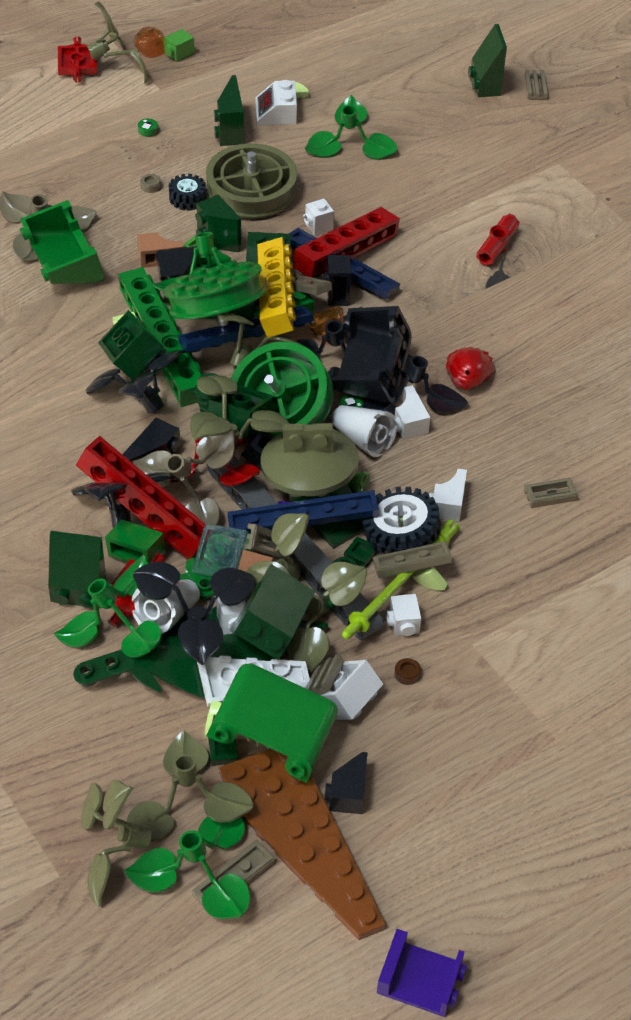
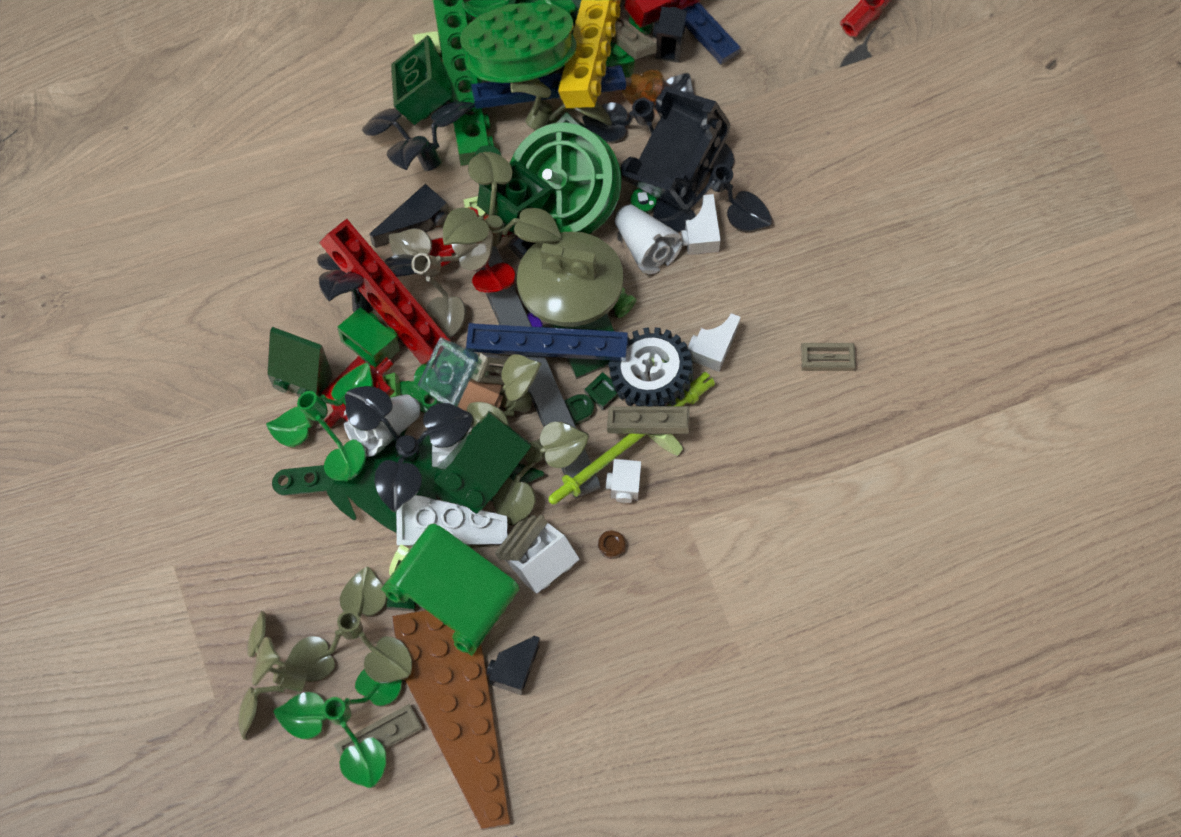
camera: 15 degrees right, 20 degrees up
(473, 360) = (790, 174): red piece -> none

